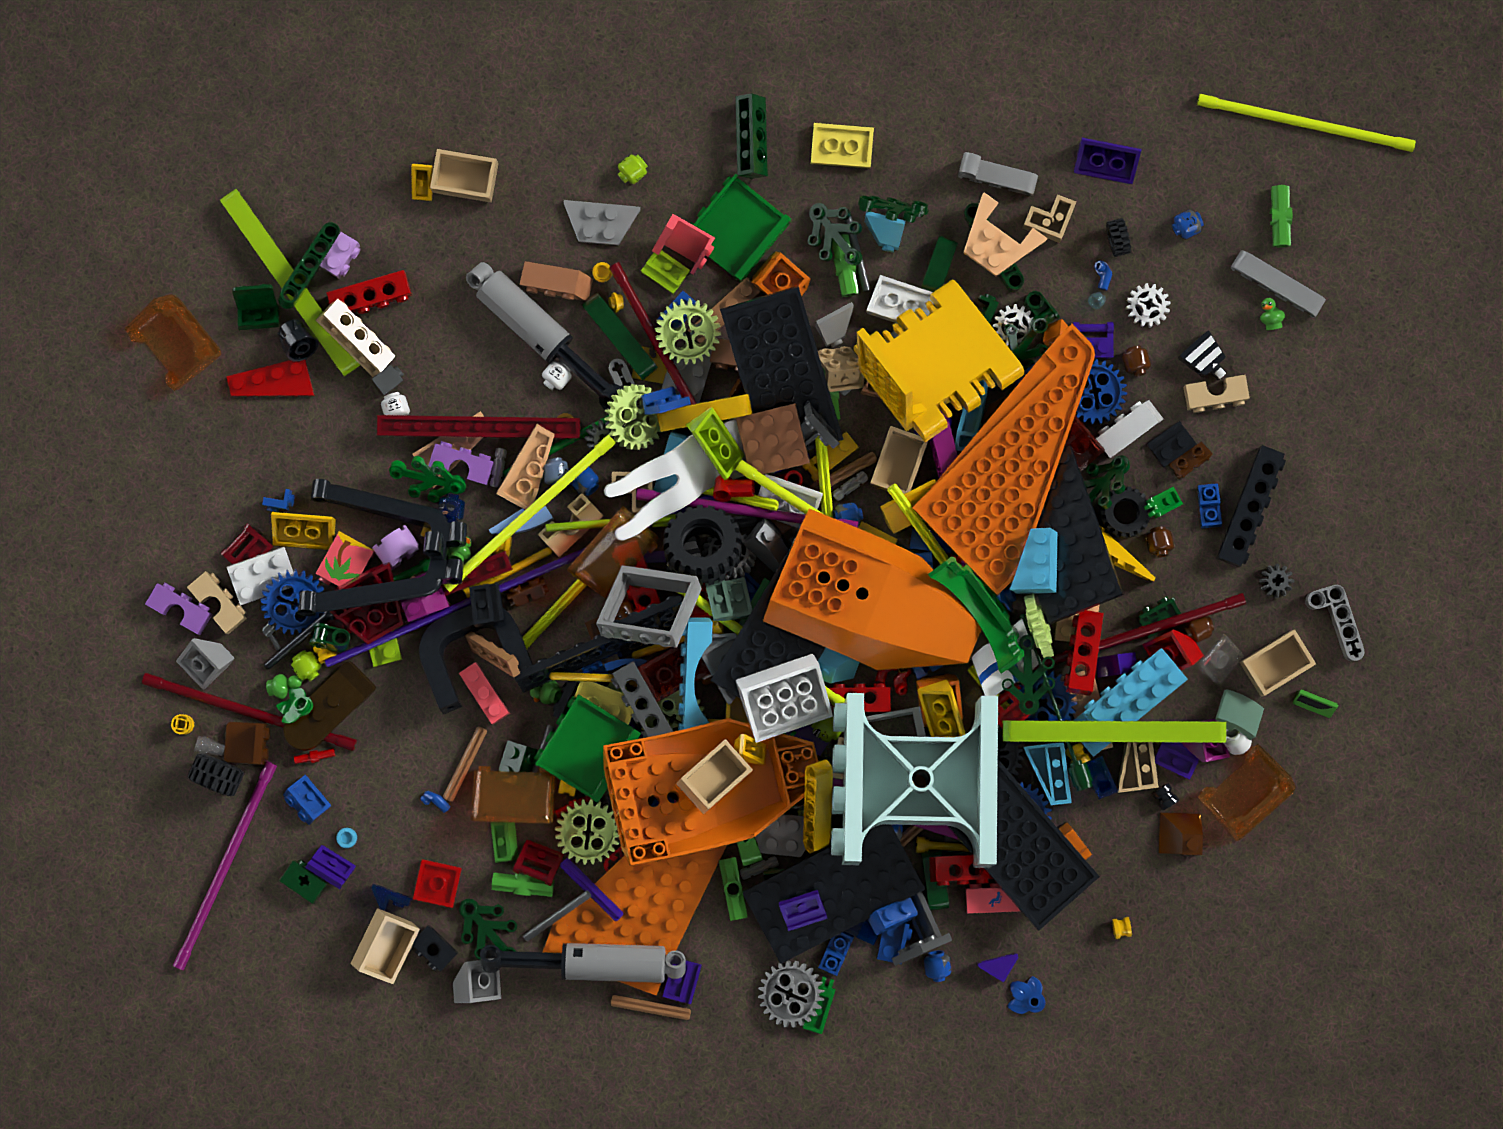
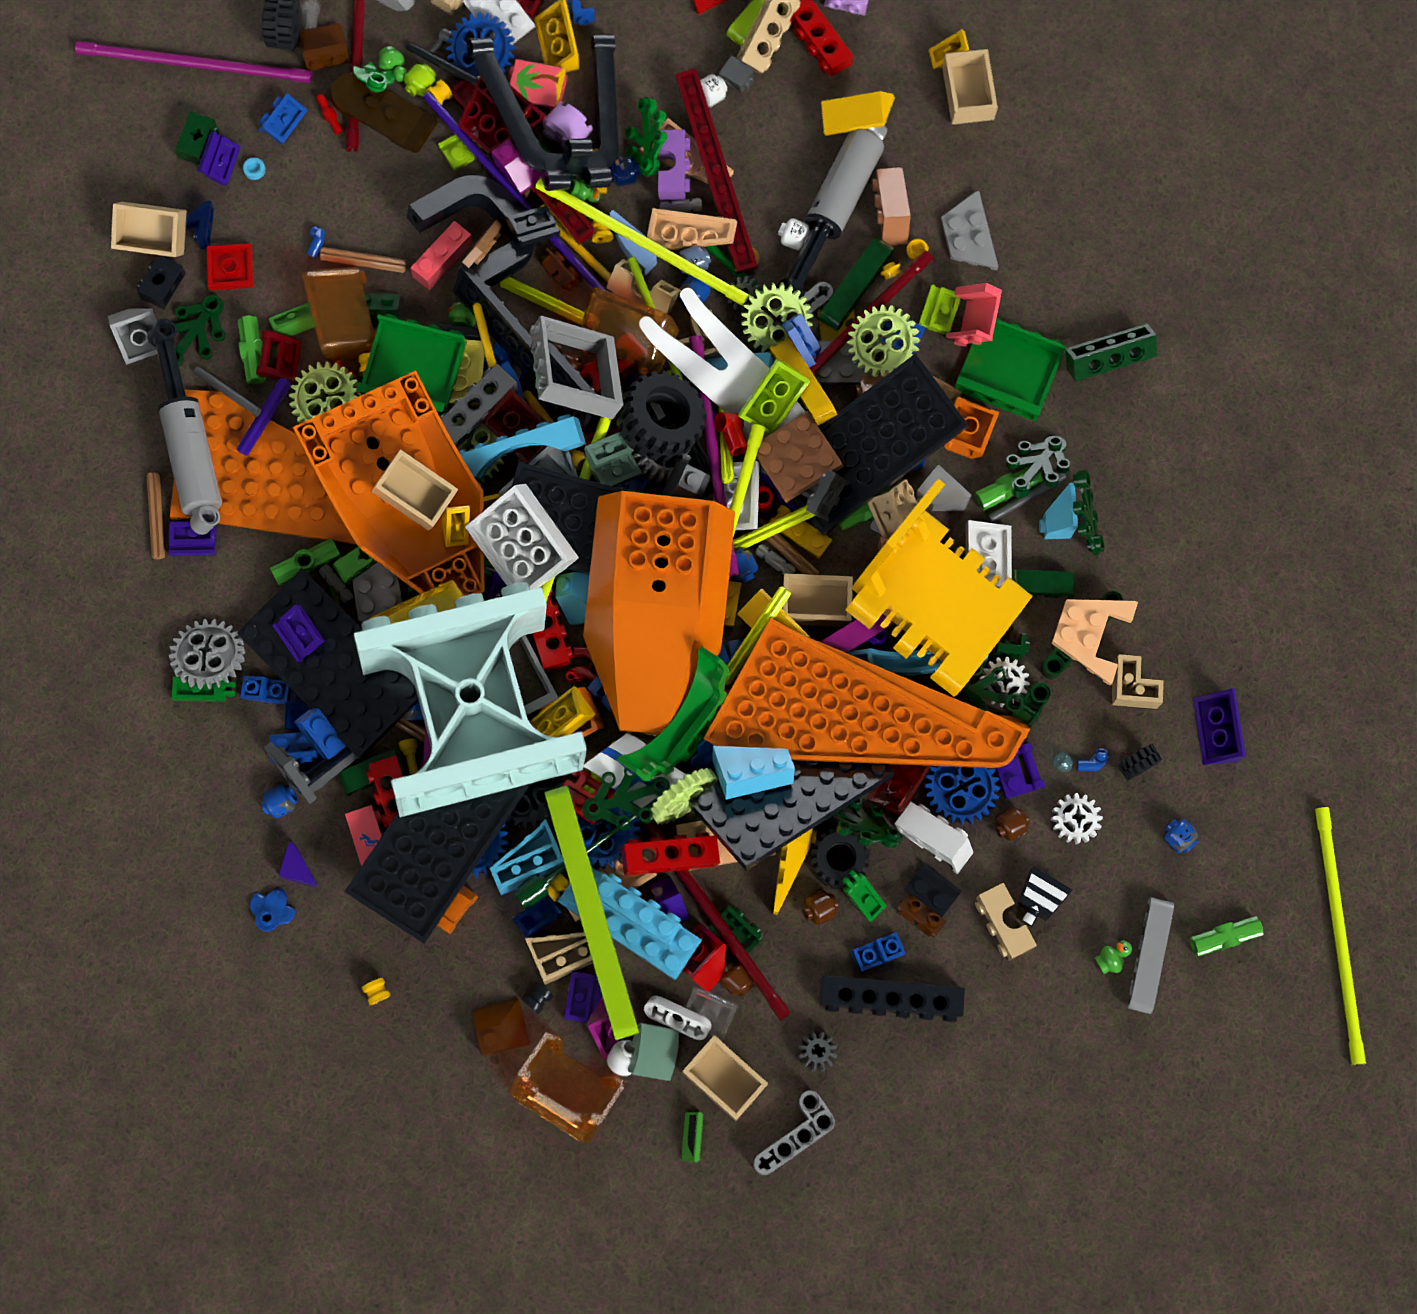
camera: 65 degrees right, 10 degrees down
(328, 637) = (453, 85): dark green piece -> none
(463, 285) = (856, 112): none -> yellow slope
(632, 169) = (1034, 247): lime head -> none
(842, 145) = (1134, 448): light yellow plate -> none
(997, 175) = (1161, 613): light grey beam -> none
(1204, 701) = (686, 1014): none -> white beam

